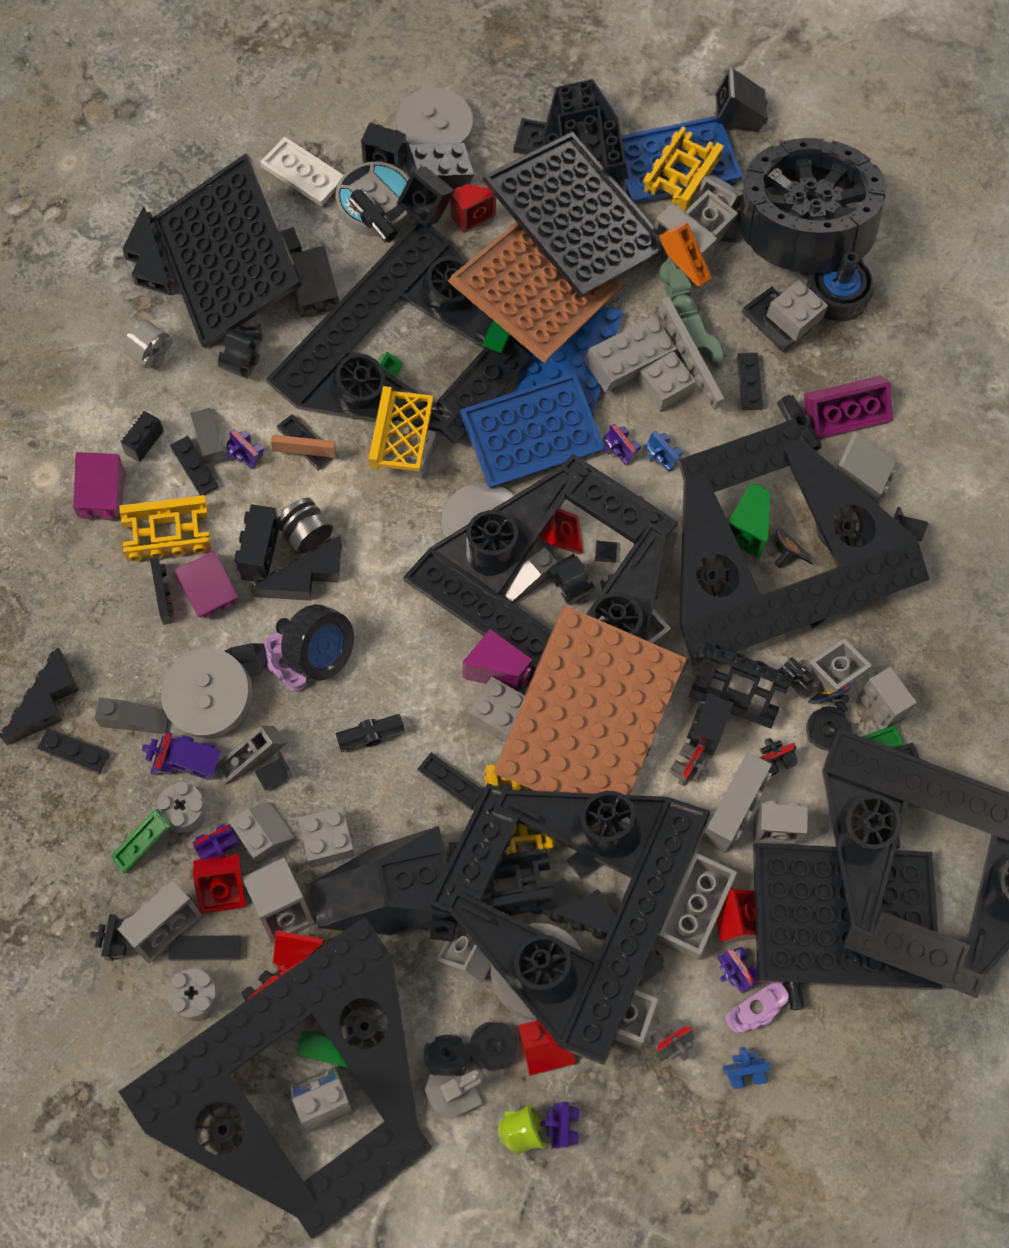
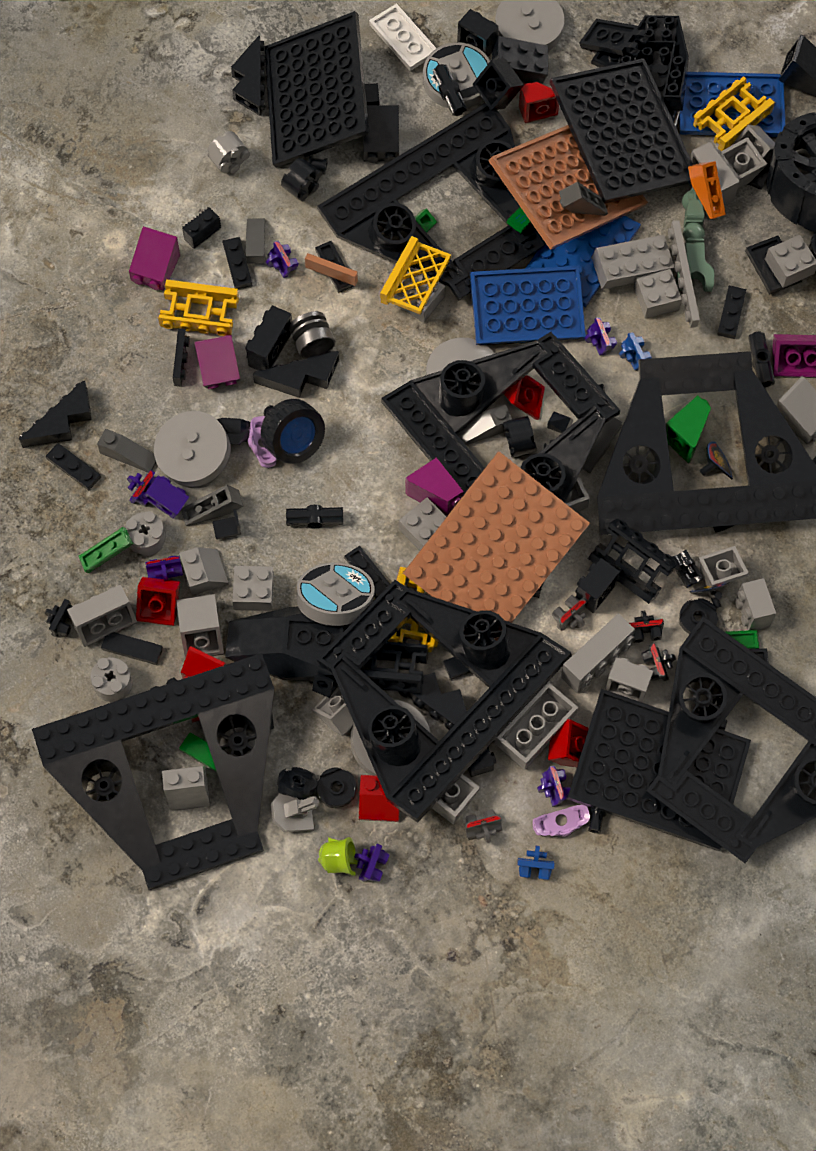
camera: 20 degrees right, 0 degrees up
(423, 818) = (334, 593): none -> brick
(531, 118) = (614, 37): none -> black tile
(560, 300) = (582, 200): none -> dark grey slope
(795, 785) = (653, 654): none -> black hips

